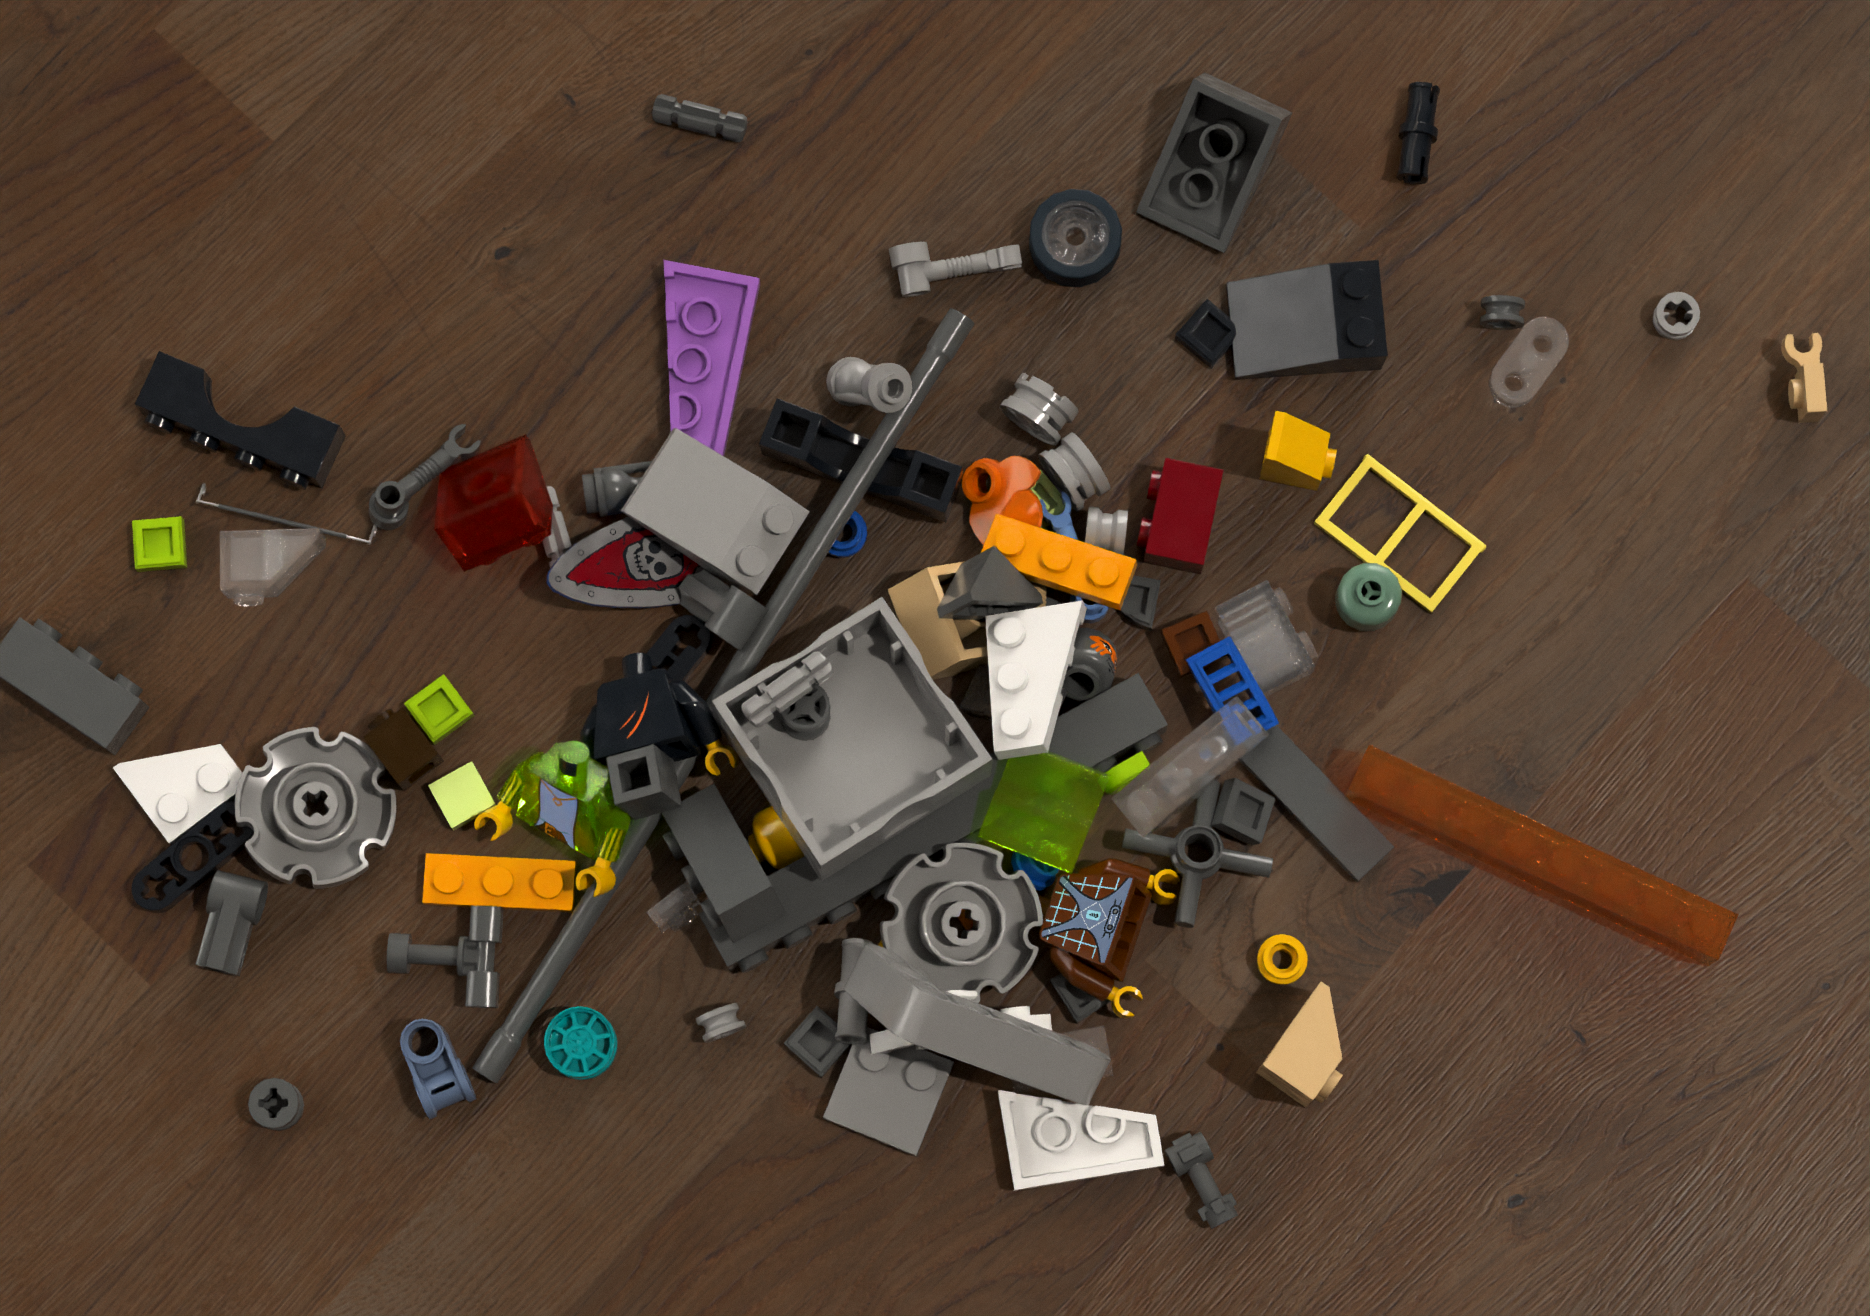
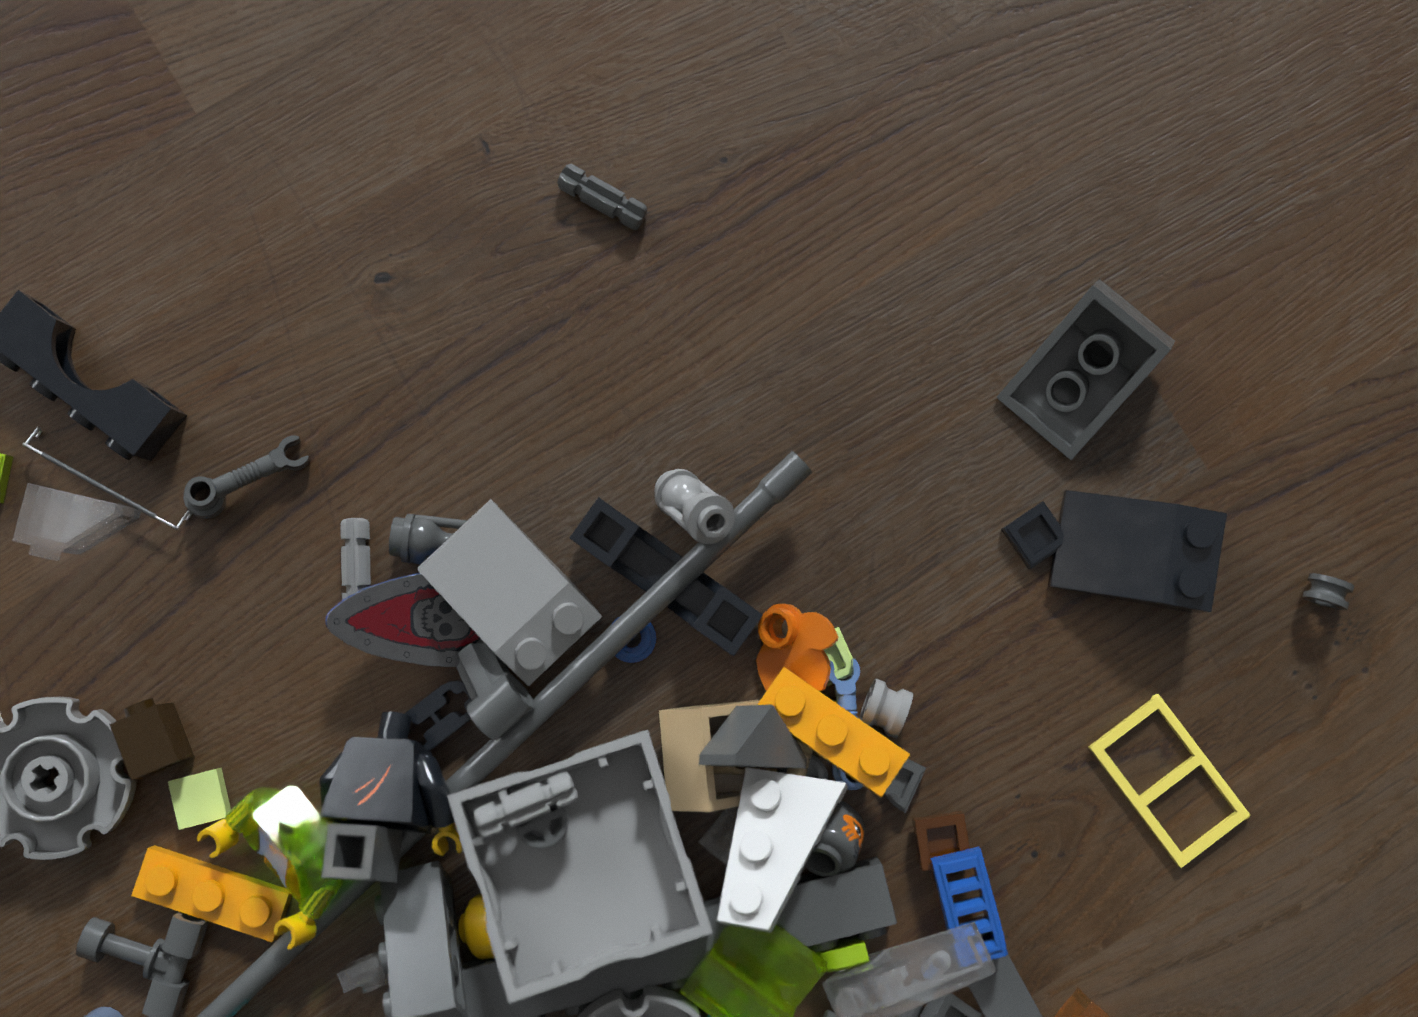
camera: 15 degrees right, 5 degrees up
(439, 709) = (201, 707): lime tile -> none
(493, 504) = (299, 525): clear red slope -> none
(707, 345) = (549, 421): medium lavender wing -> none
(917, 270) = (770, 401): light grey brick -> none
(1038, 409) = (853, 569): light grey wheel -> none
(1057, 220) = (957, 408): wheel -> none
(1074, 470) = (871, 641): light grey wheel -> none
(1182, 515) = (963, 710): dark red brick -> none
(1265, 637) = (1015, 855): clear brick -> none
(1297, 453) = (1092, 681): yellow slope -> none
(1359, 610) = (1112, 834): sand green head -> none
(1418, 133) = (1290, 392): black pin -> none
(1527, 363) = (1339, 650): clear plate -> none

